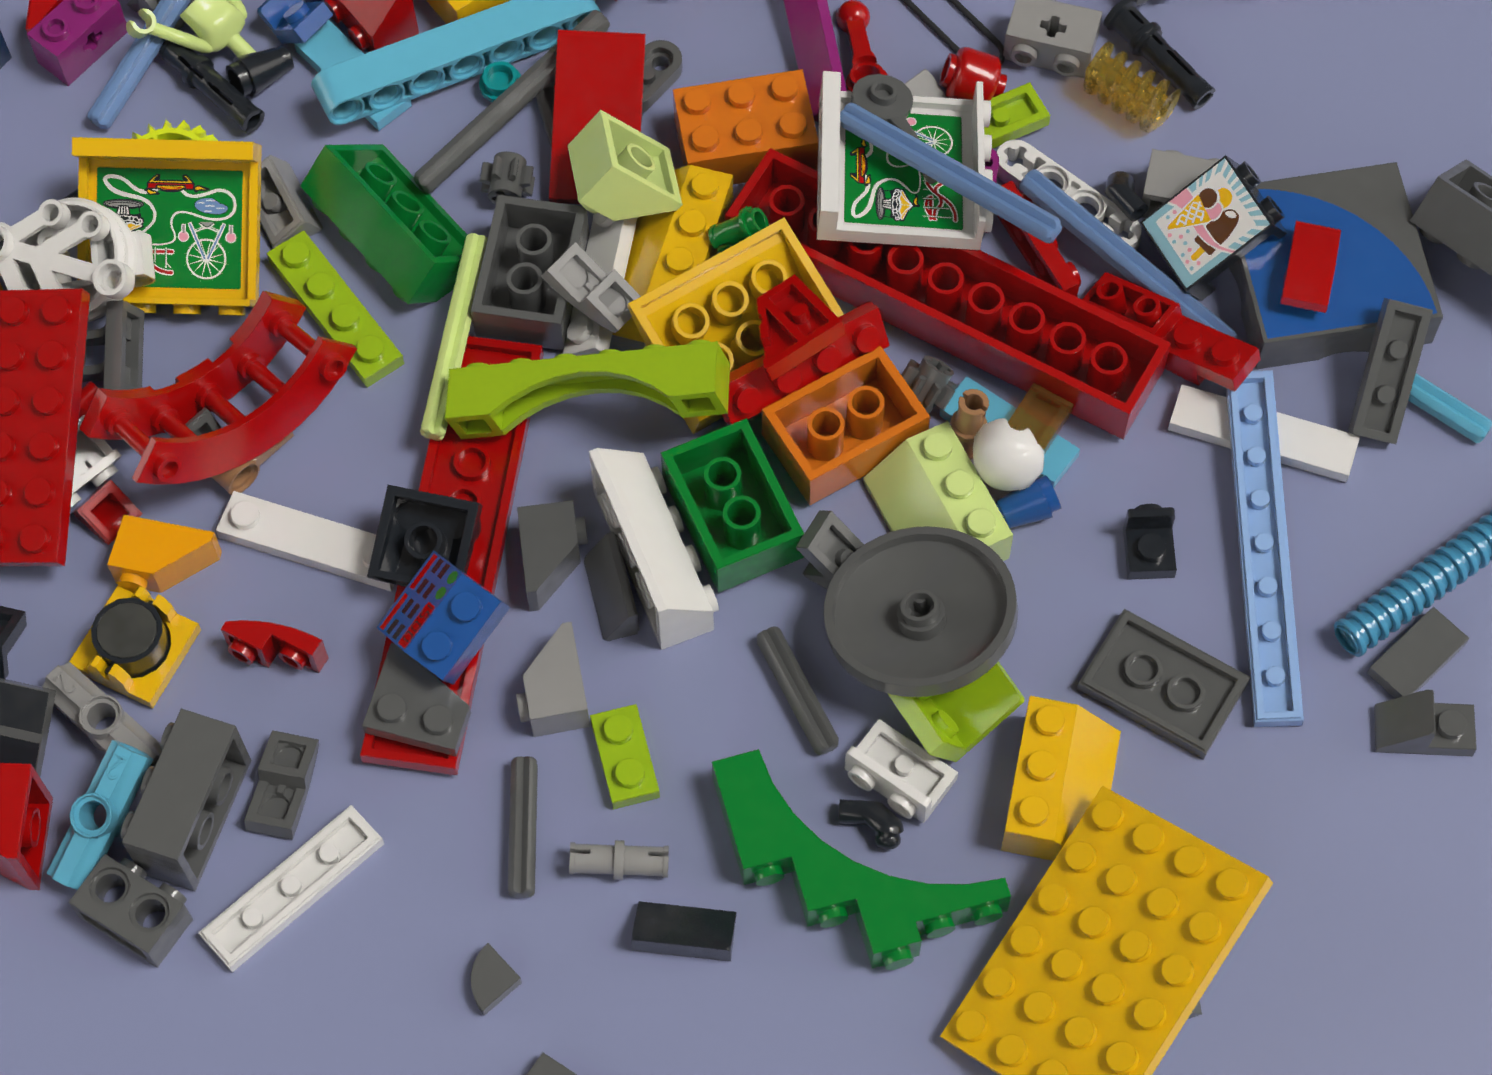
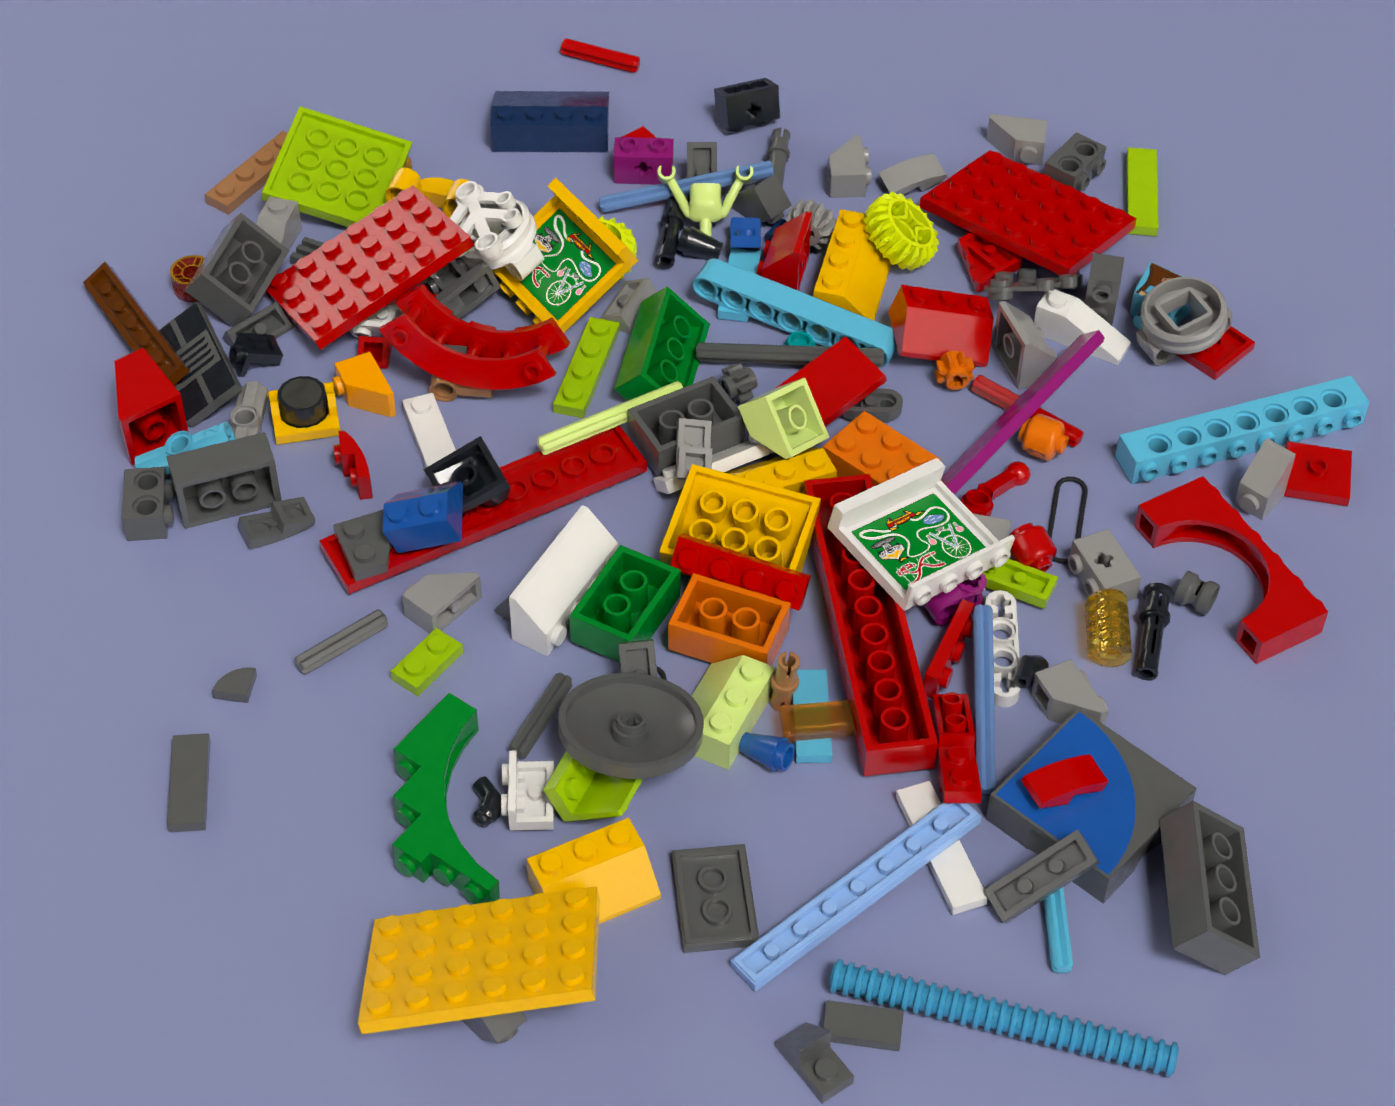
camera: 50 degrees right, 15 degrees down
(291, 888) = (219, 565): white tile -> none
(498, 397) = (586, 454): lime arch -> none
(549, 547) = (518, 543): dark grey slope -> none
(619, 859) = (357, 696): light grey pin -> none
(683, 931) = (339, 755): black slope -> none
(737, 228) = (803, 485): green pin -> none
(794, 326) = (751, 543): red wing -> none
(888, 100) = (952, 503): dark grey piece -> none
(930, 382) = (803, 645): dark grey gear -> none
(951, 173) = (926, 553): medium blue axle -> none
(1006, 456) = (776, 709): white hair -> none
(1149, 542) = (804, 830): black bracket -> none
(1213, 224) = (1047, 717): panel -> none

